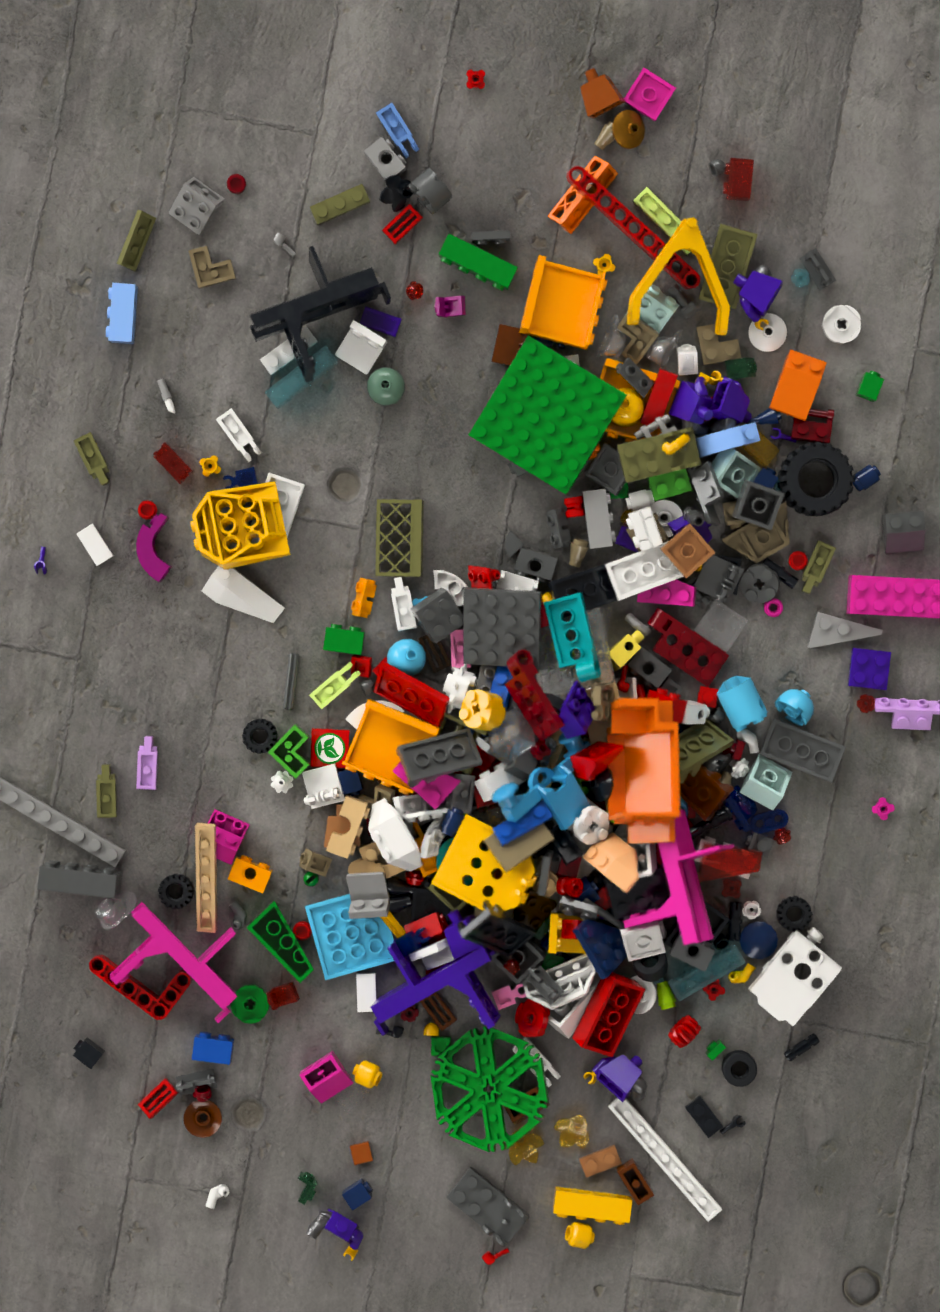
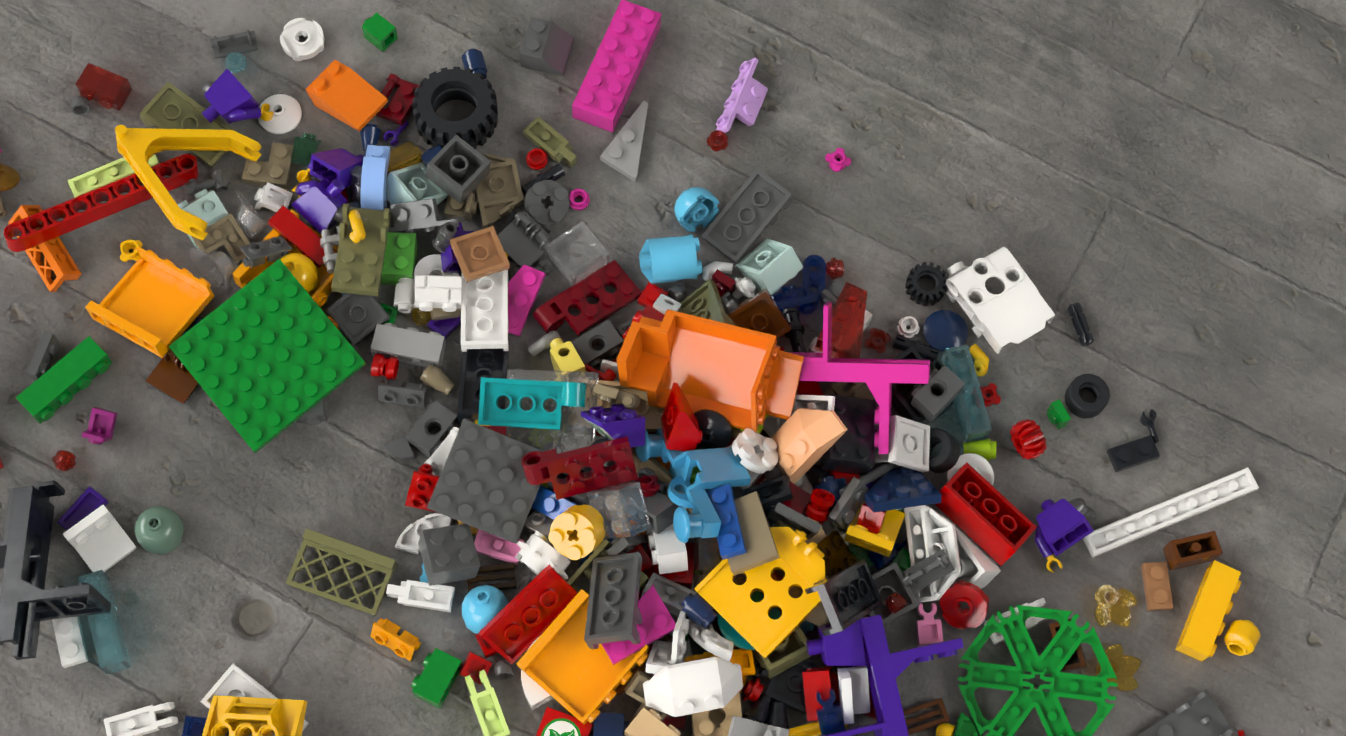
camera: 75 degrees left, 20 degrees down
(869, 668) = (680, 127): dark purple plate -> none

